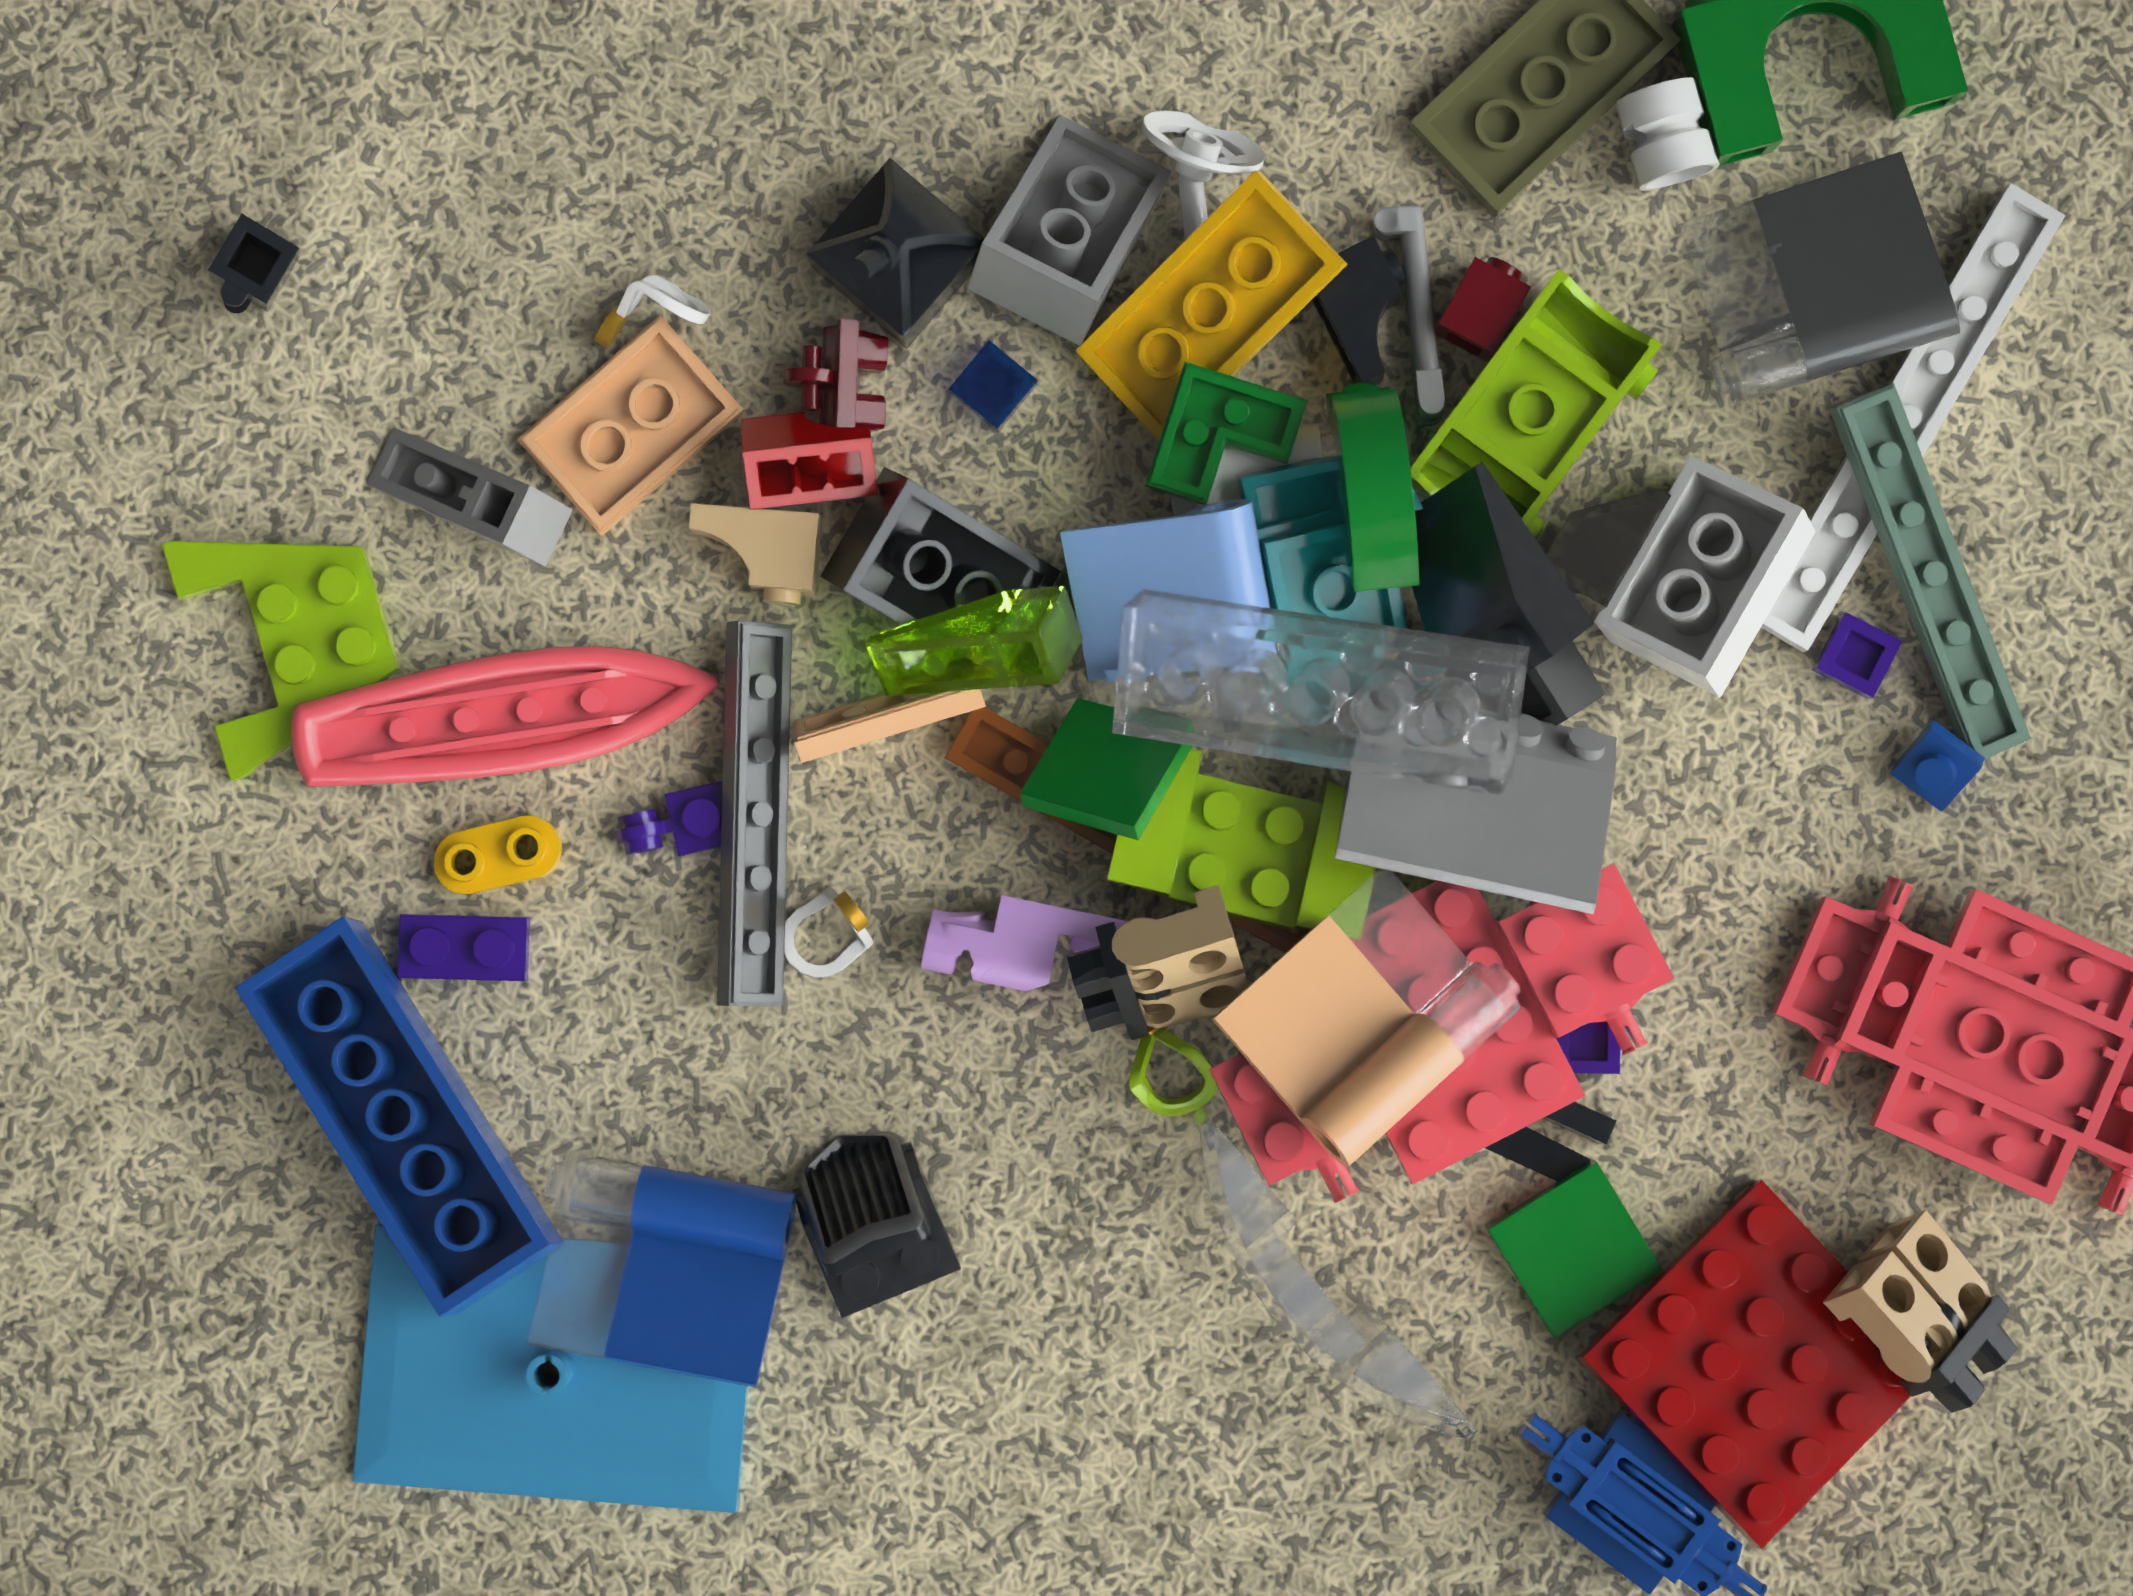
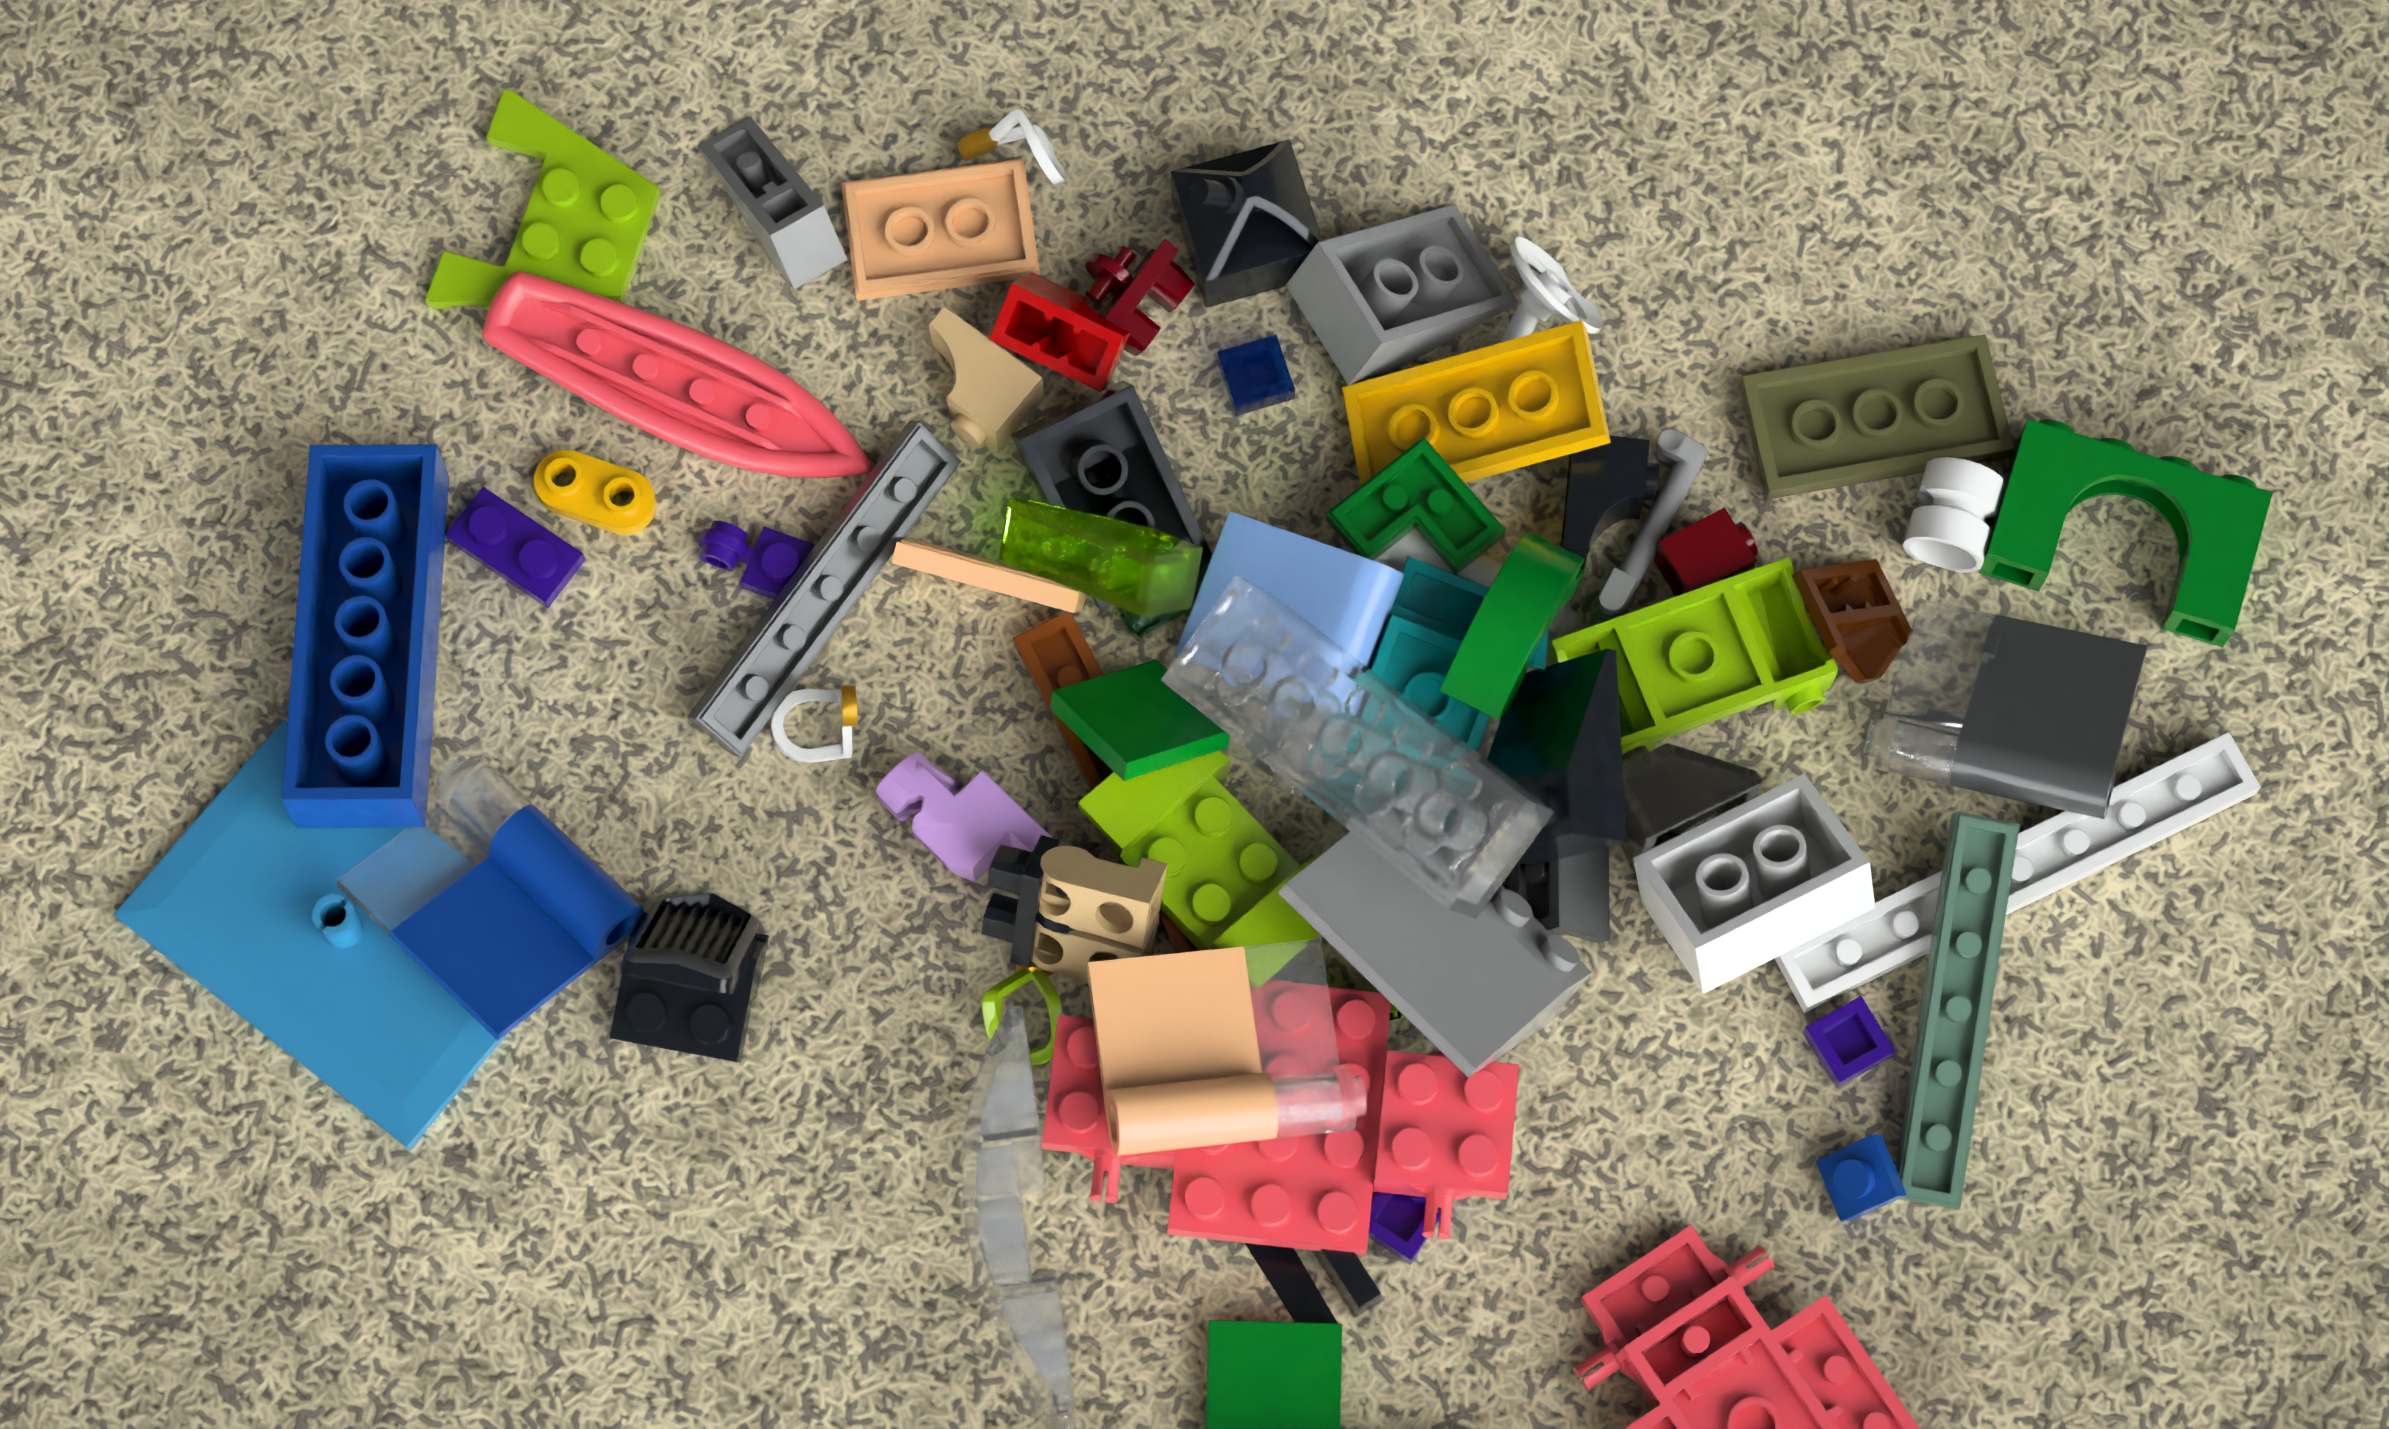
camera: 30 degrees right, 15 degrees down
(1639, 278) = (1855, 615): none -> reddish brown slope

